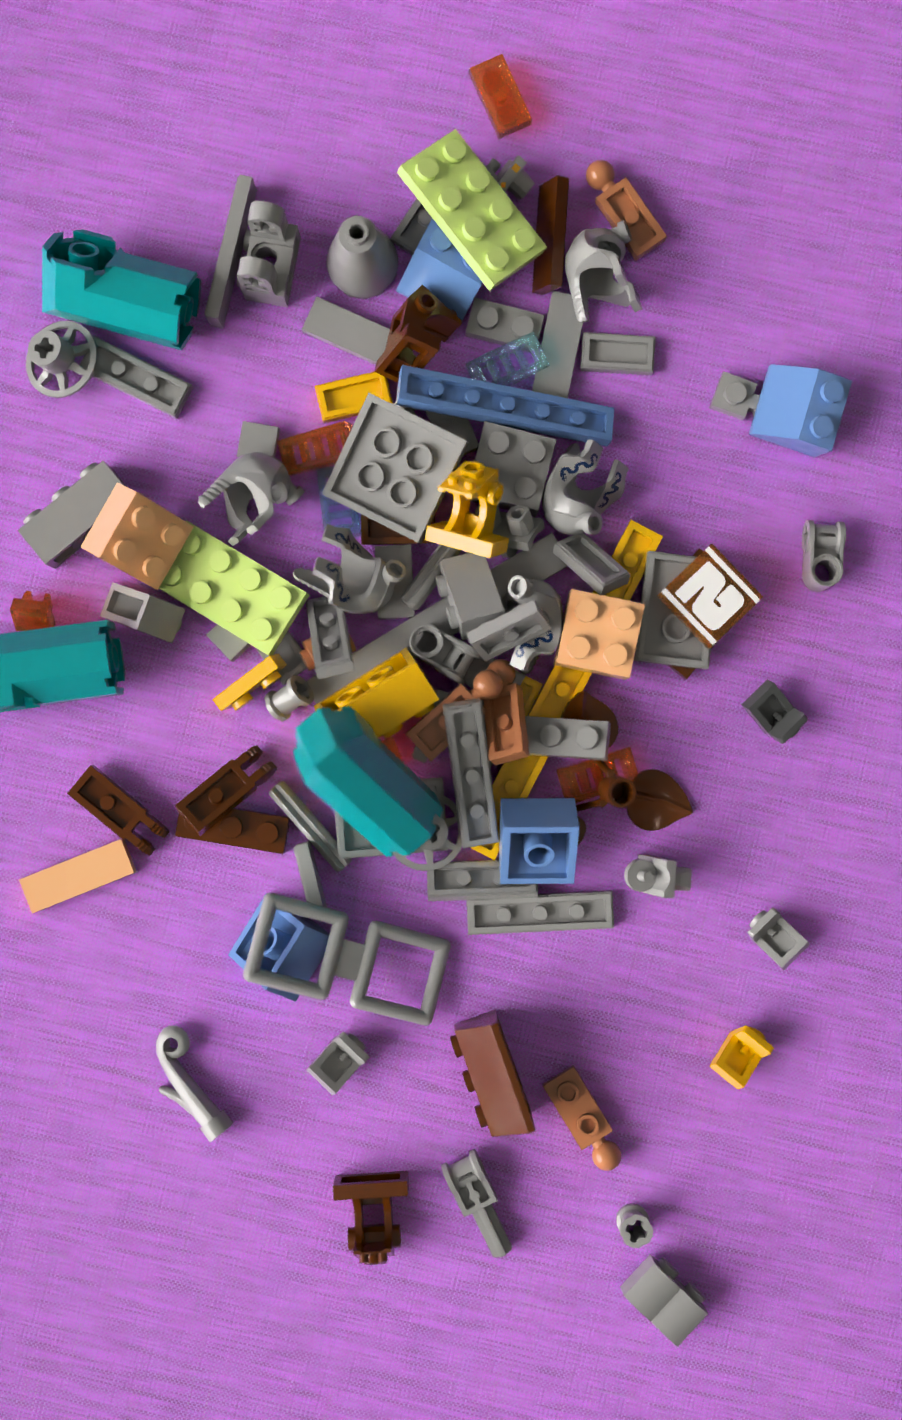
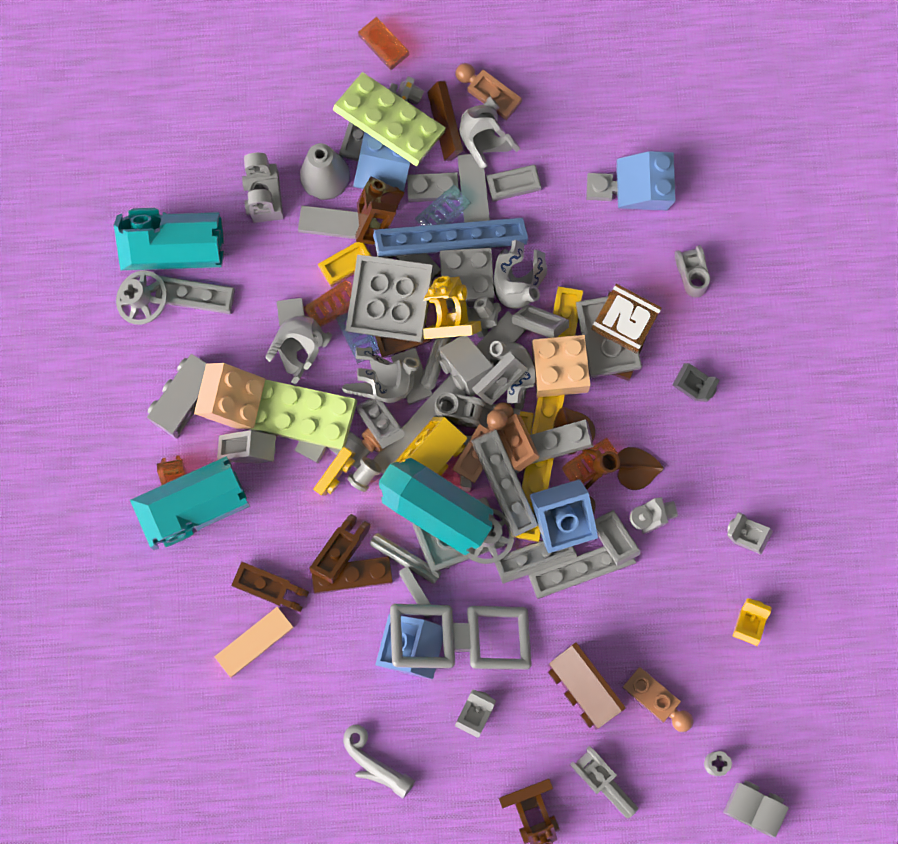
camera: 15 degrees left, 10 degrees down
(230, 252) = (235, 194): light grey tile -> none
(597, 888) = (616, 538): none -> light grey tile

